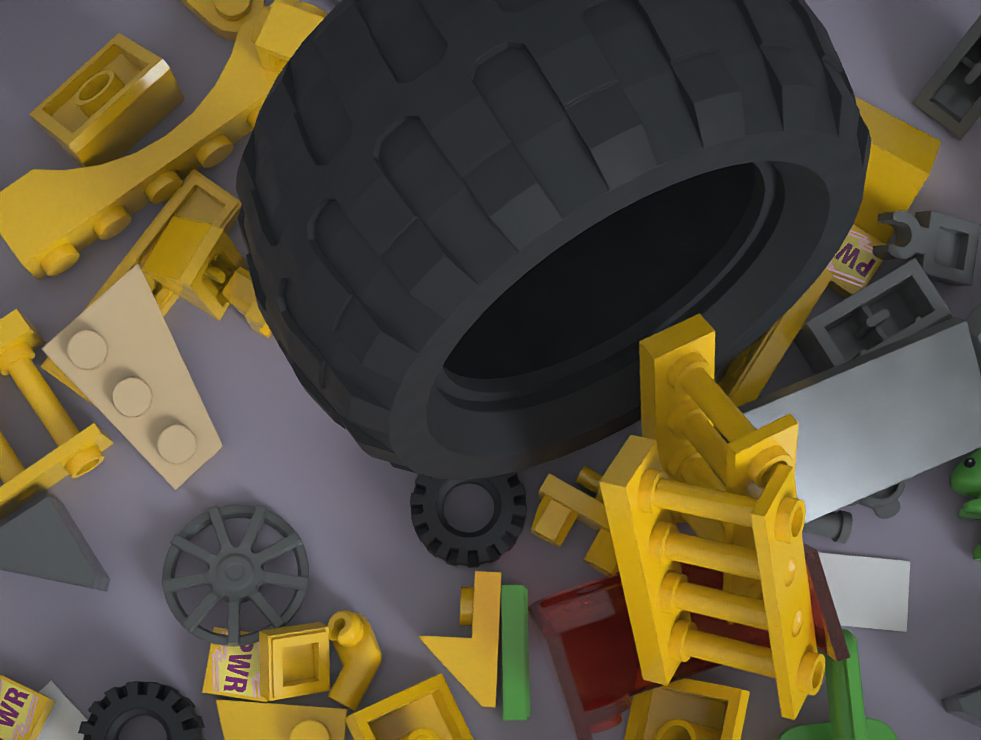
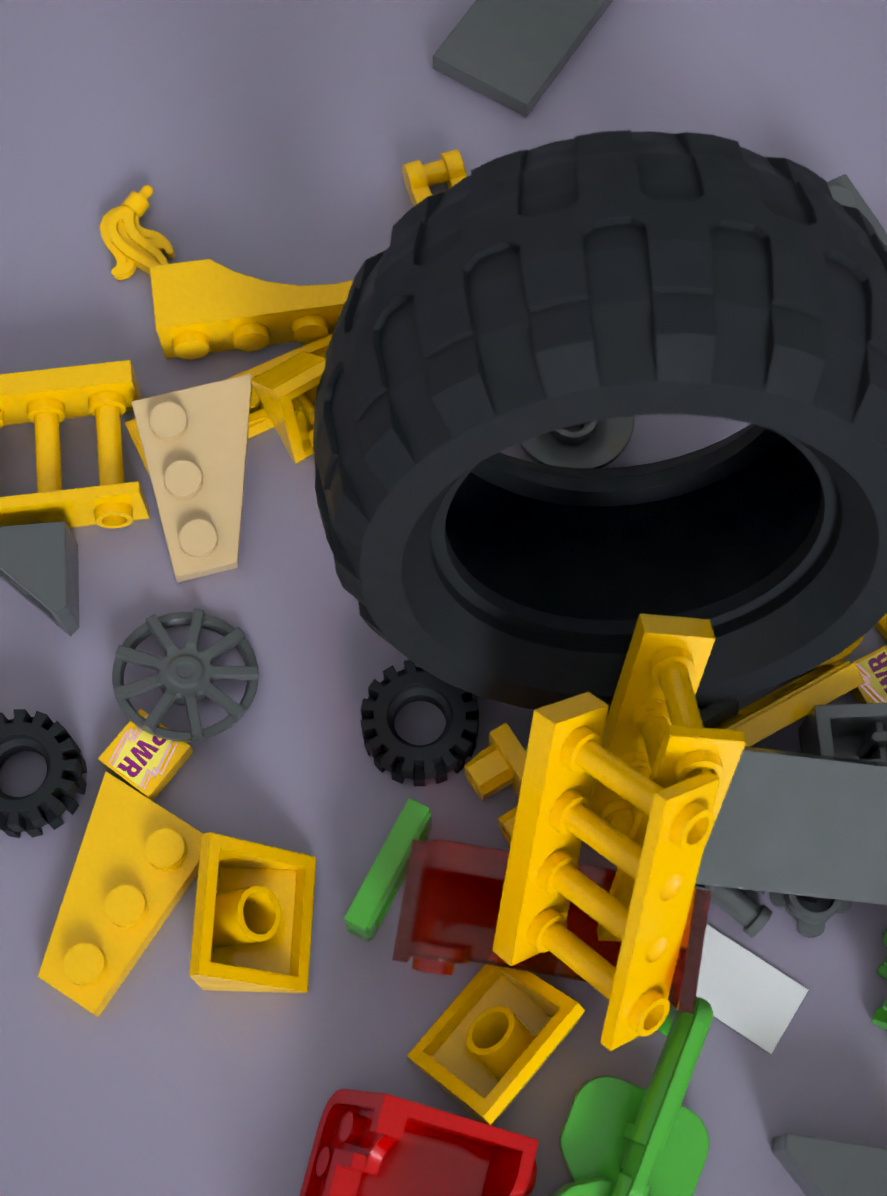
camera: 30 degrees right, 10 degrees down
(109, 103) = (306, 245): yellow slope -> none
(294, 661) = (191, 772): yellow tile -> none
(358, 654) = (251, 799): yellow arm -> none
(475, 658) = (351, 852): yellow slope -> none

